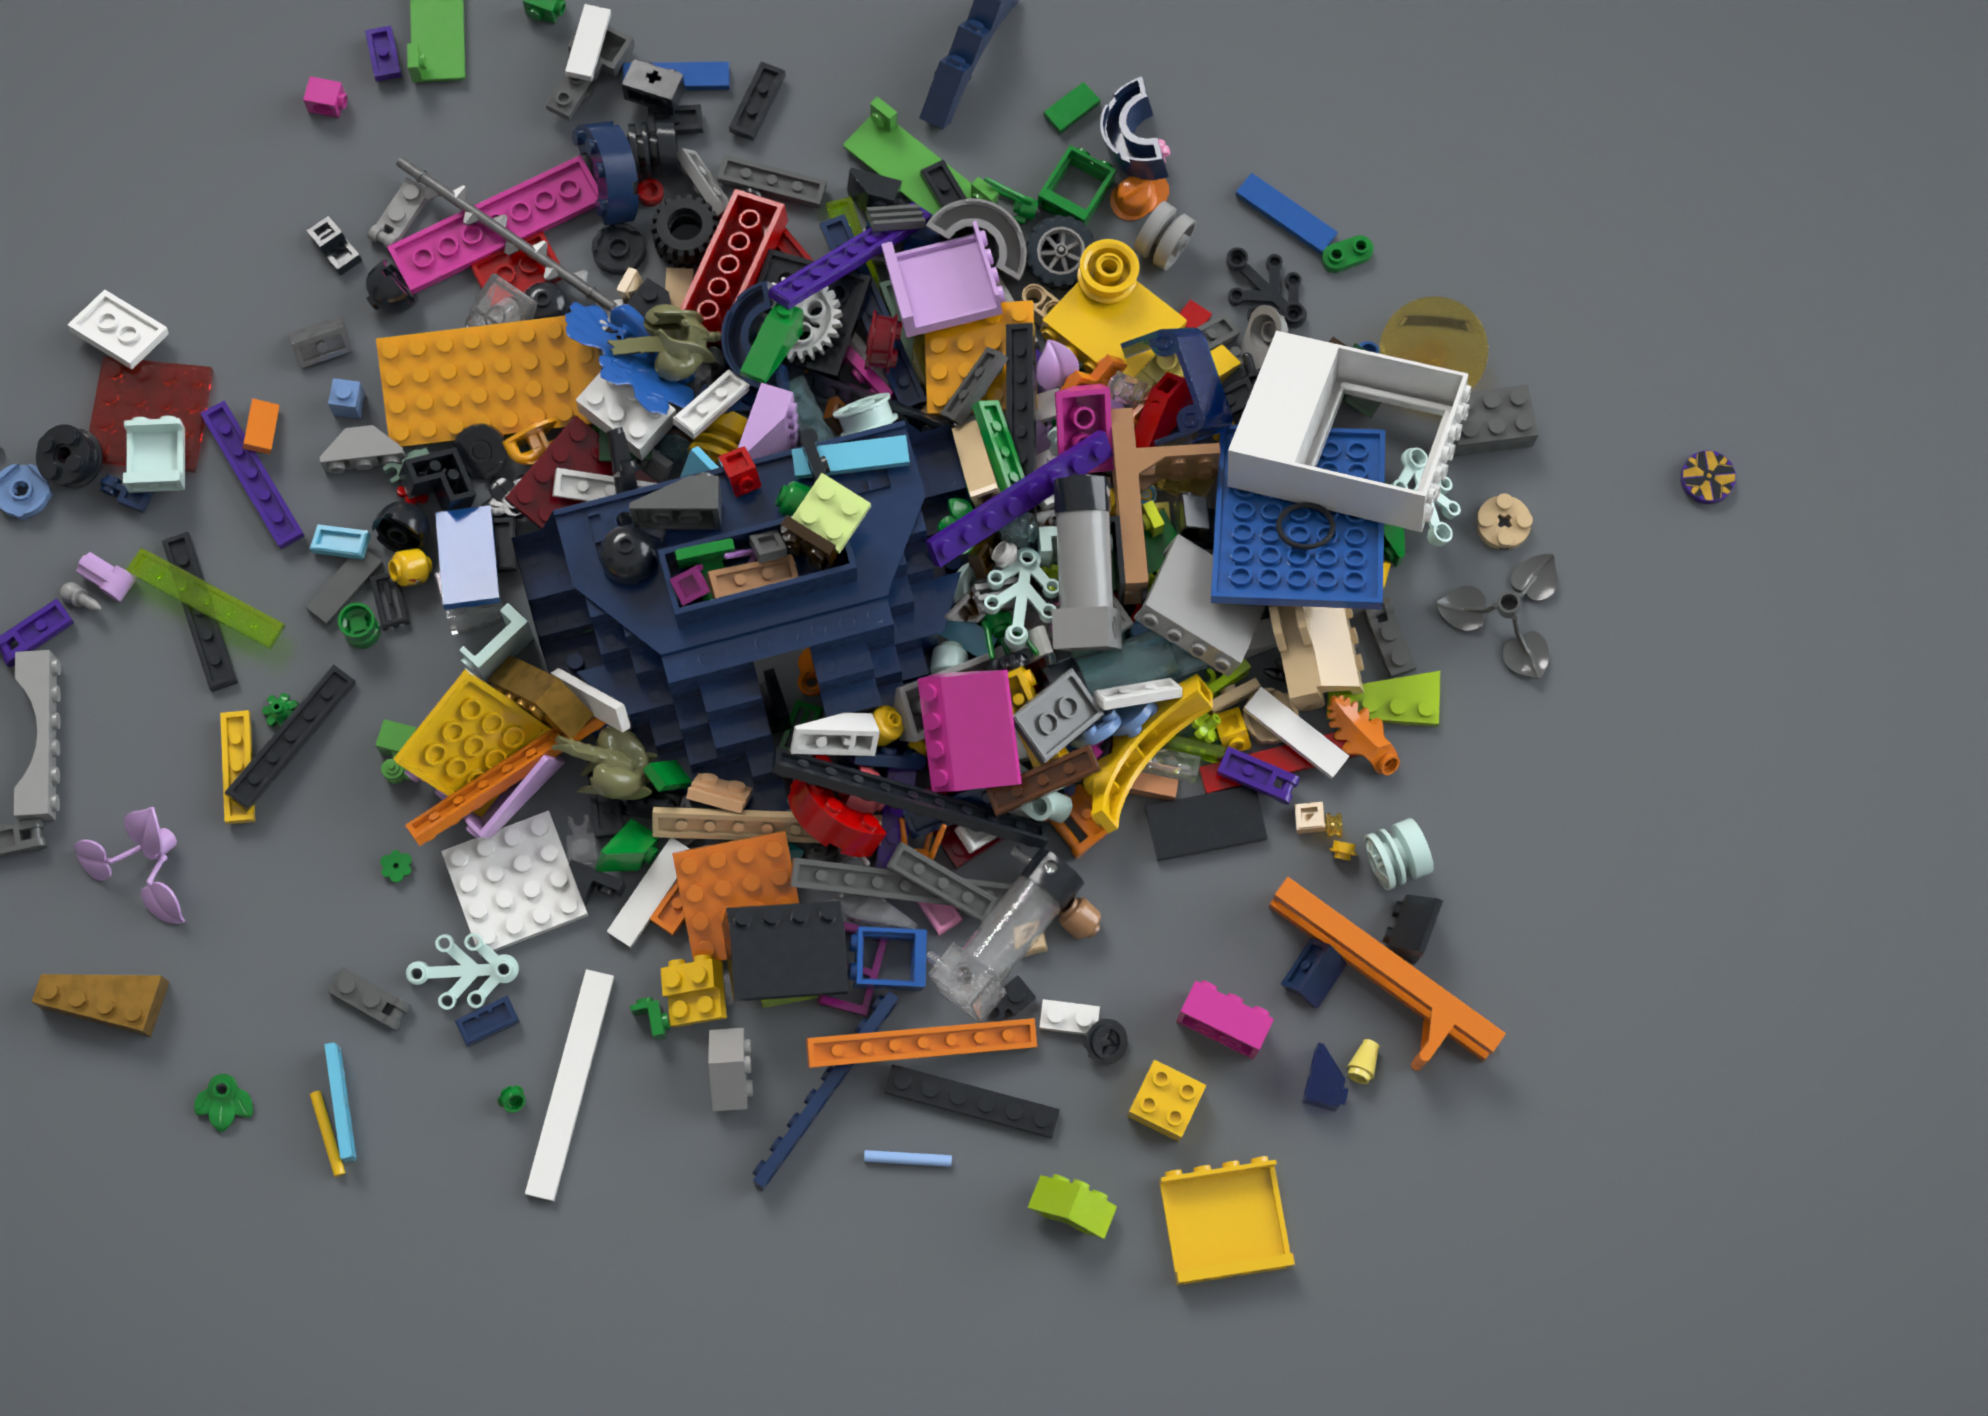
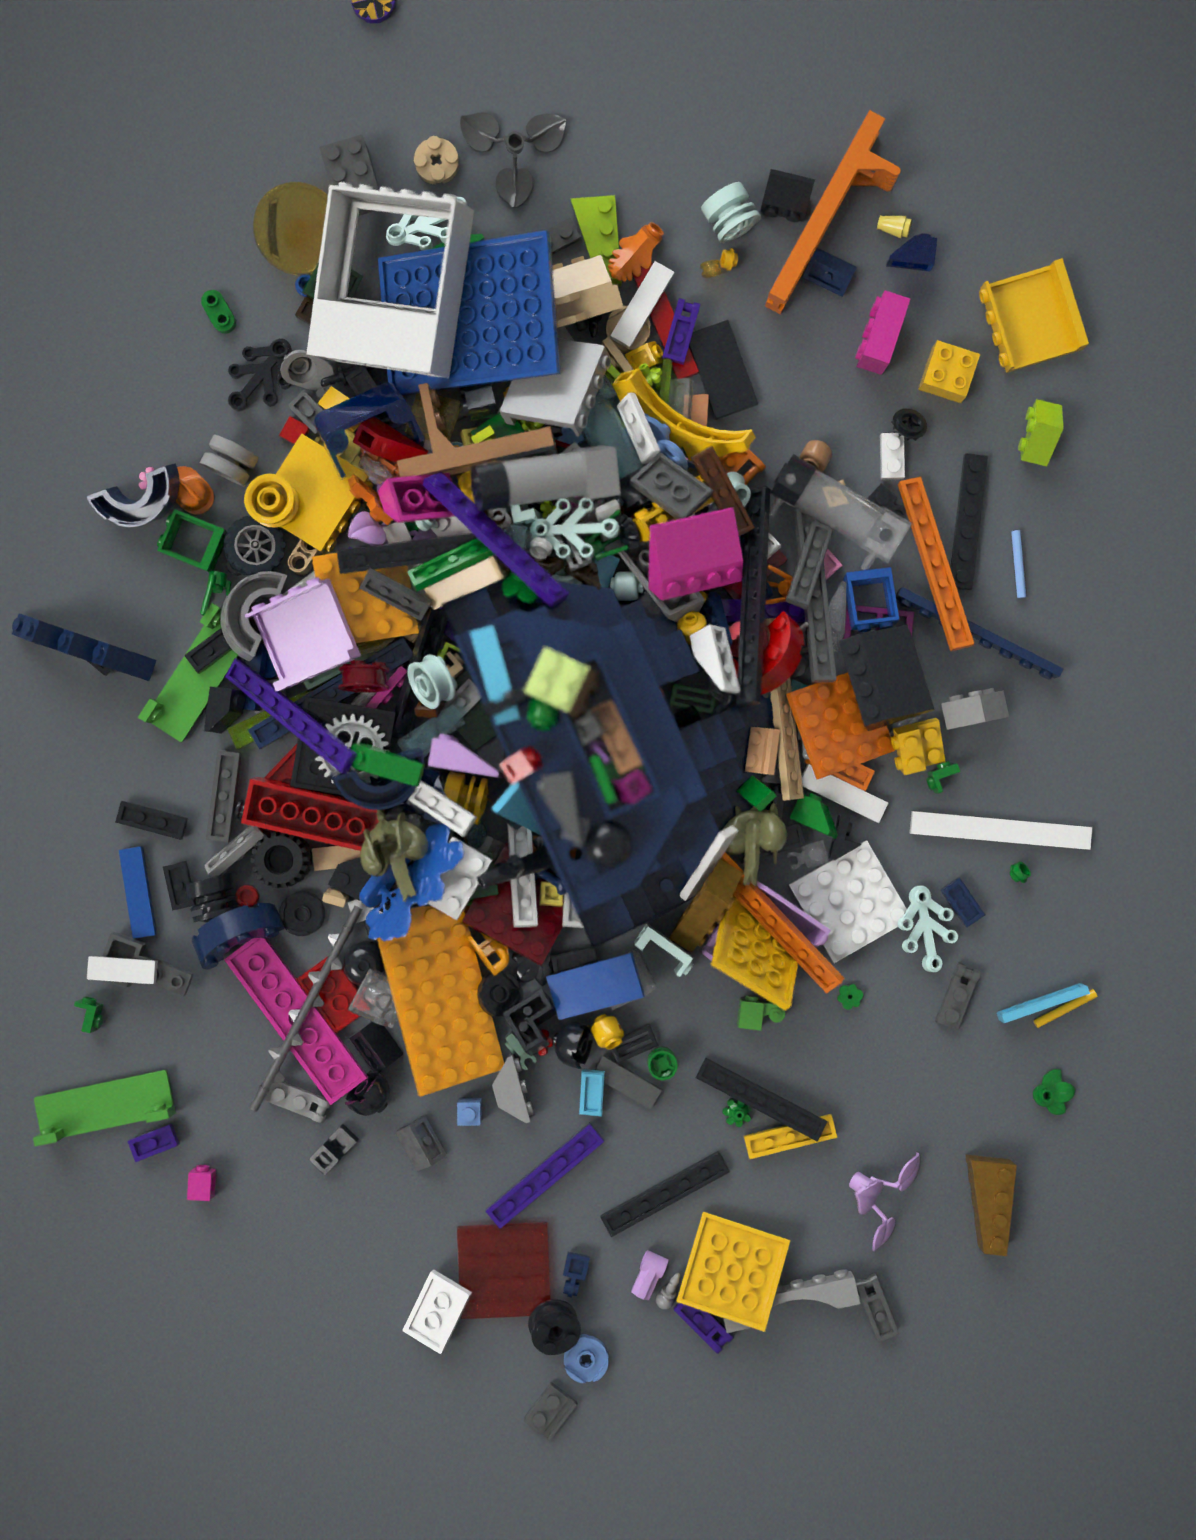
camera: 90 degrees left, 15 degrees up
(88, 670) = (733, 1271): none -> yellow plate
(155, 454) = (544, 1257): light aqua panel -> none
(205, 598) = (656, 1191): clear neon green tile -> none
(261, 426) = (504, 1176): orange tile -> none
(445, 307) = (376, 1046): none -> black panel
(653, 86) = (156, 896): brick -> none
(895, 217) = (244, 687): dark grey tile -> none
(1071, 107) = (118, 556): green tile -> none
(1286, 213) = (189, 366): blue tile -> none
(1305, 546) = (500, 310): black tyre -> none
(1310, 817) = (706, 288): tan tile -> none

